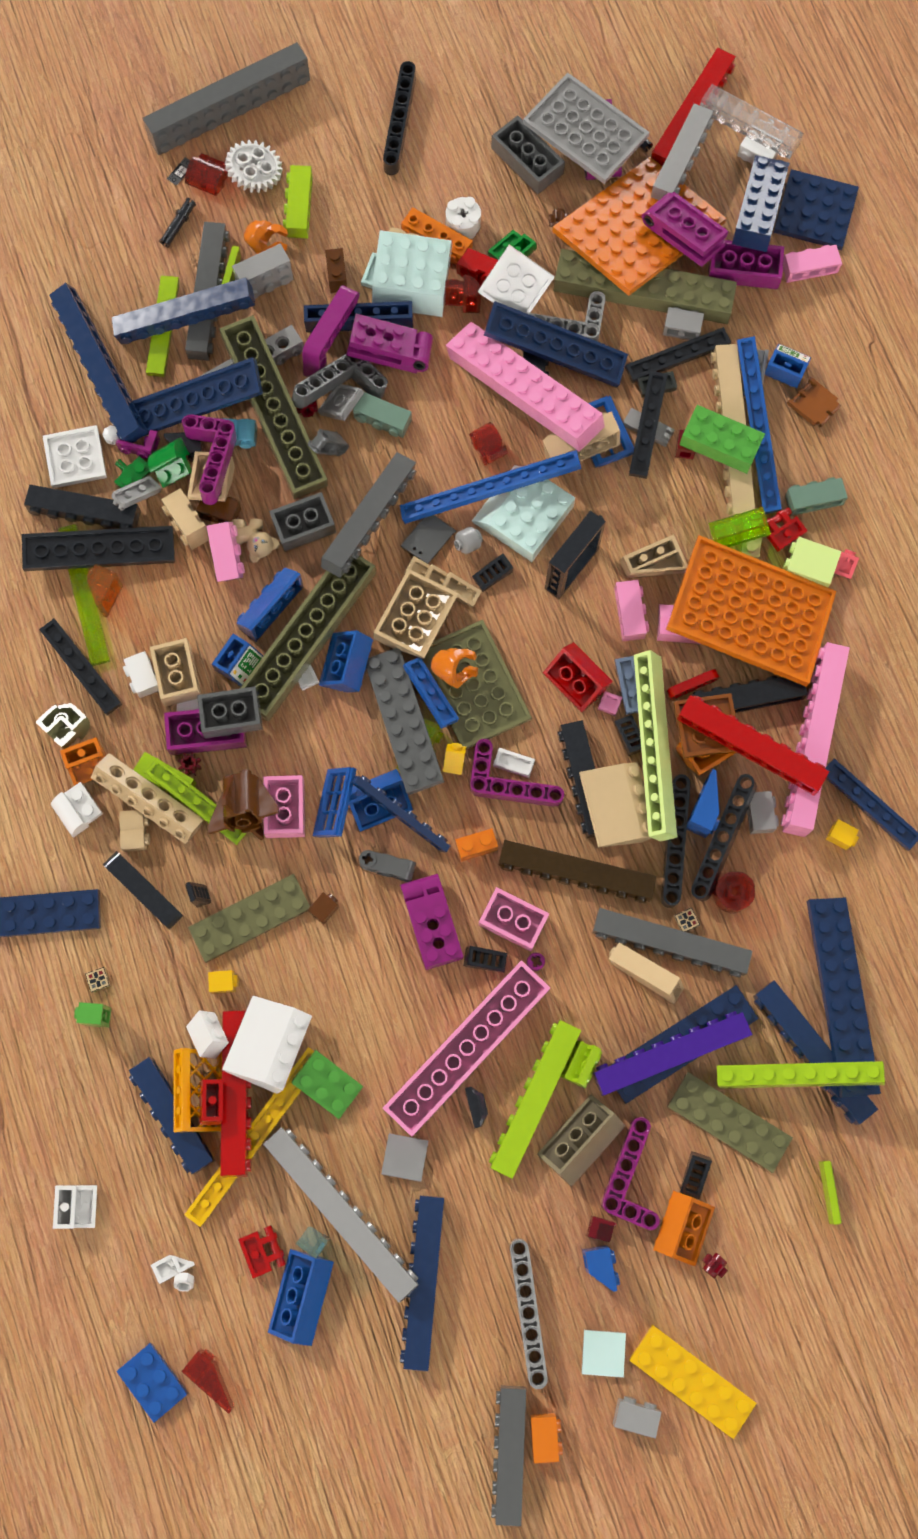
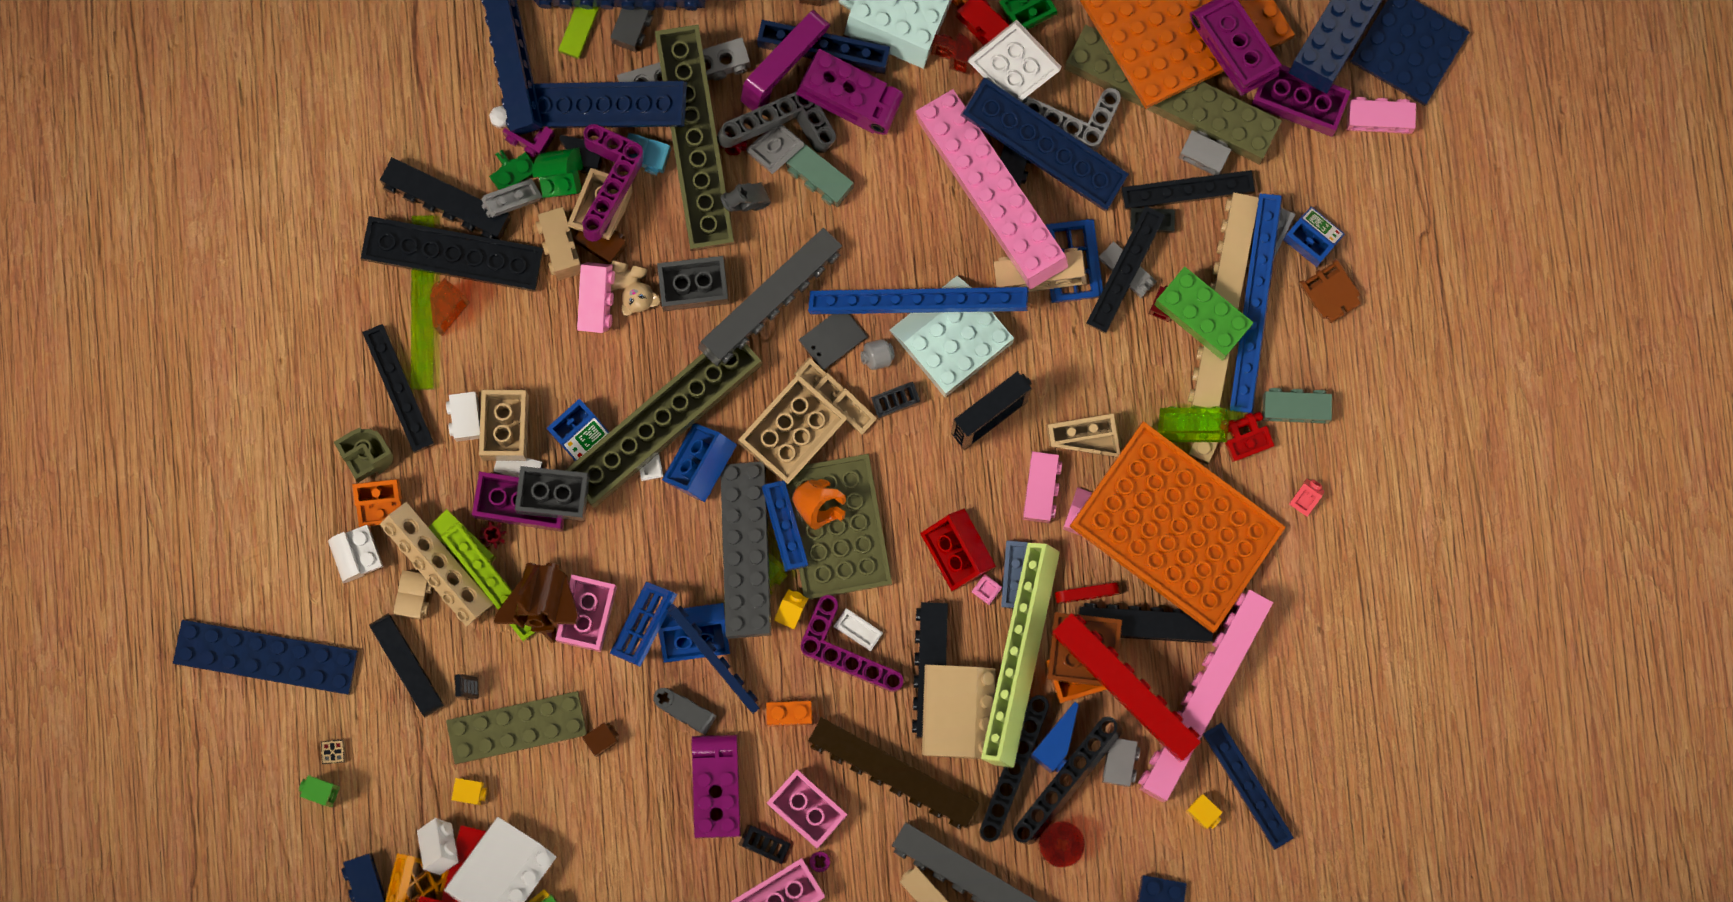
camera: 15 degrees right, 5 degrees up
(74, 456) = (451, 133): white plate -> none
(270, 603) = (631, 371): blue slope -> none
(488, 443) = (933, 244): clear red brick -> none
(634, 749) = (999, 613): black slope -> none
(686, 920) = (1000, 861): tile -> none
(812, 561) = (1267, 485): yellowish green brick -> none

